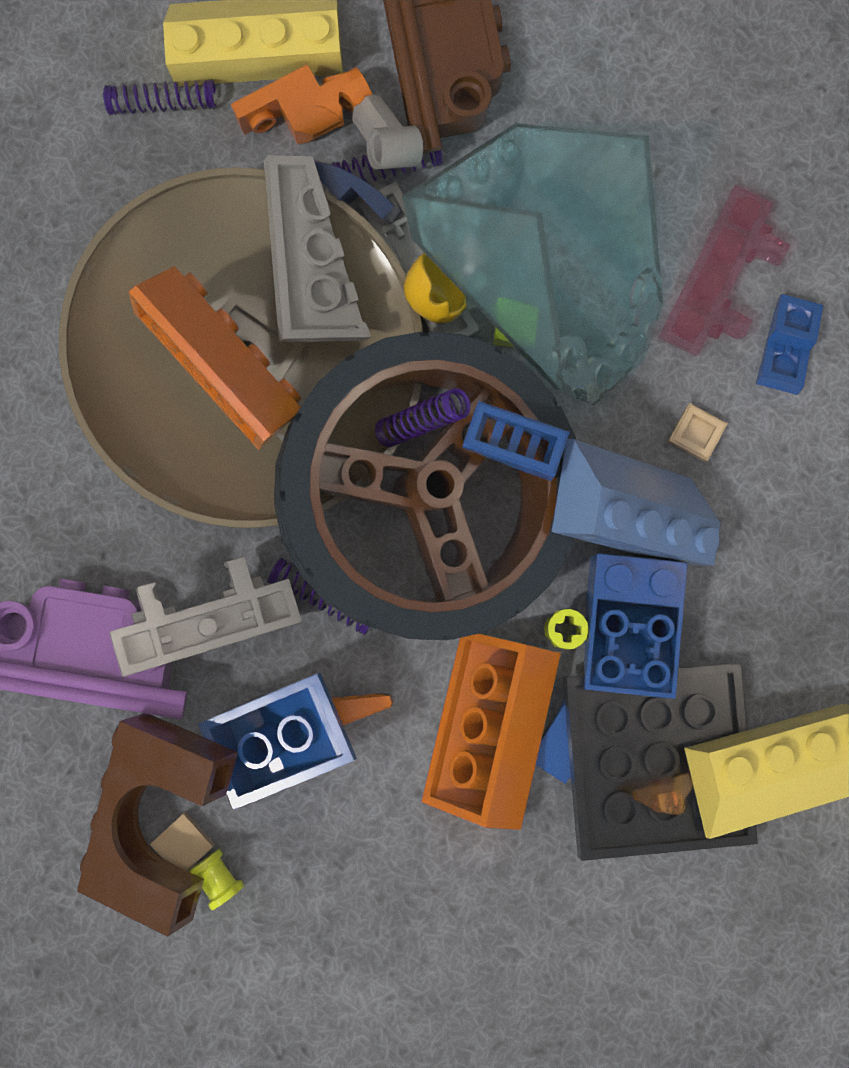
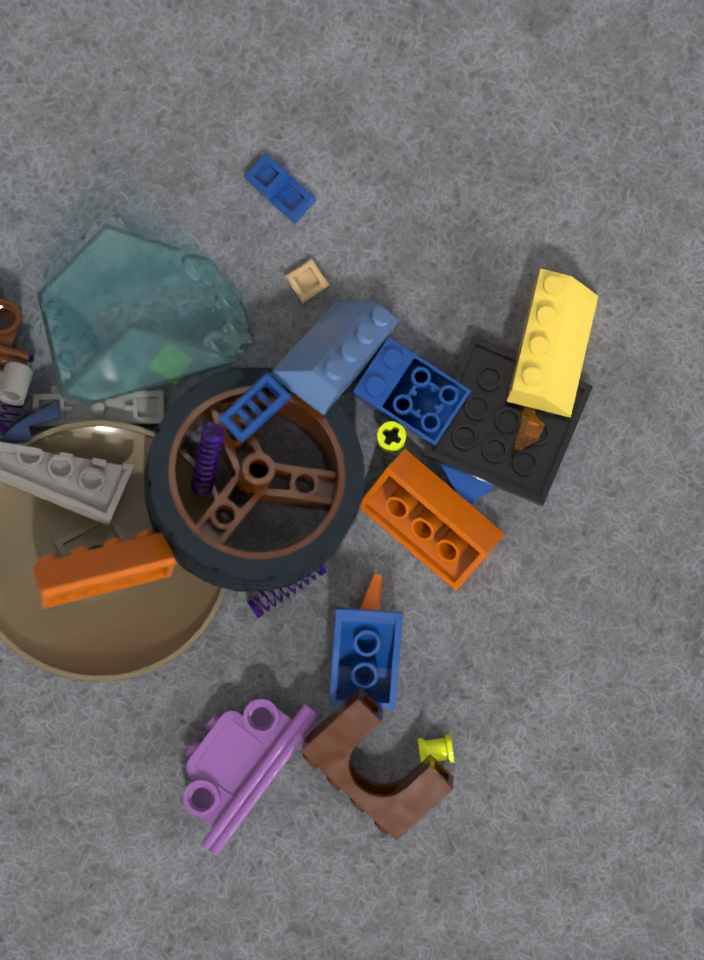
camera: 60 degrees left, 0 degrees up
(168, 635) = (272, 642): light grey hinge -> none
(182, 843) = (401, 760): tan tile -> none
(432, 292) = (126, 410): yellow hair -> none
(734, 239) = (190, 188): clear pink hinge -> none

